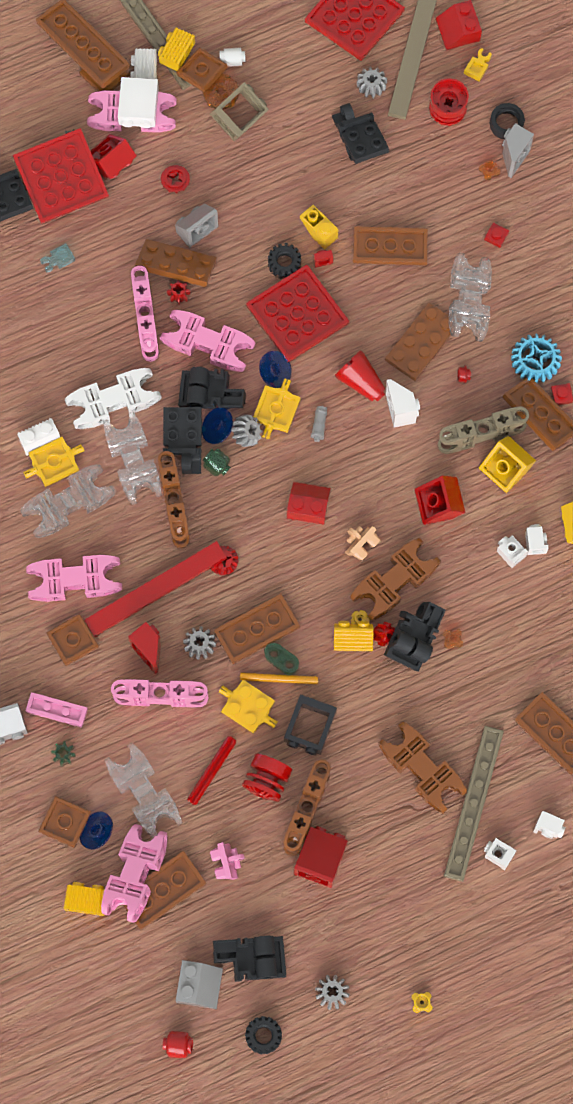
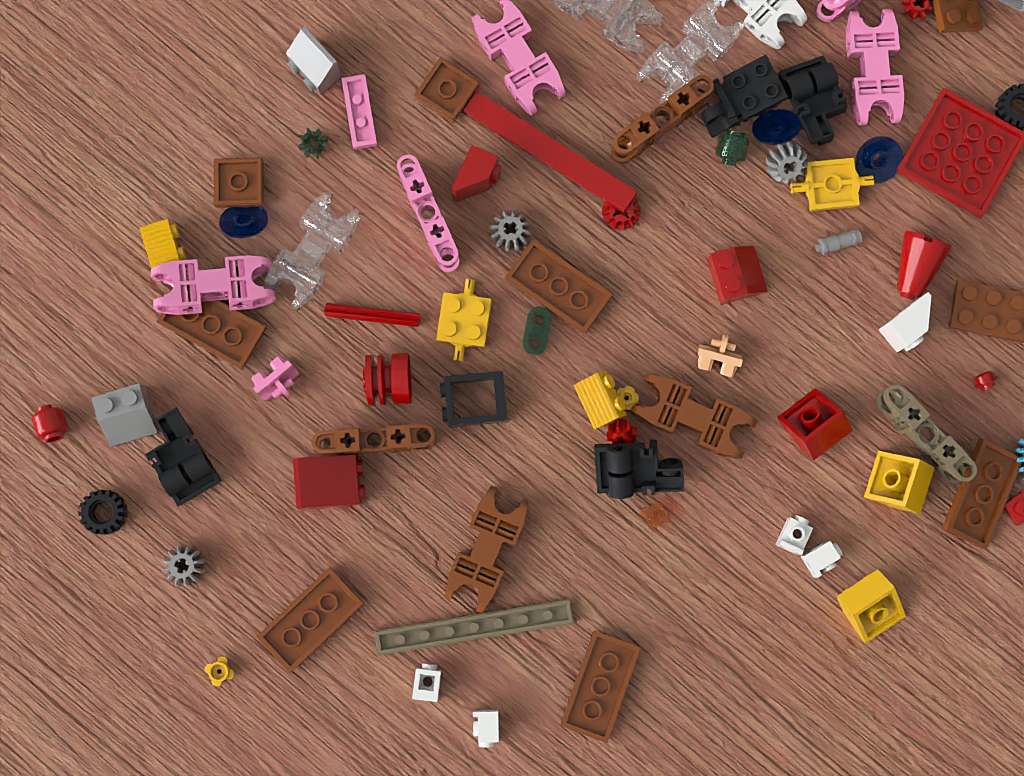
camera: 65 degrees right, 10 degrees up
(279, 678) = (513, 338): light orange bar -> none
(415, 917) = (310, 620): none -> dark orange plate

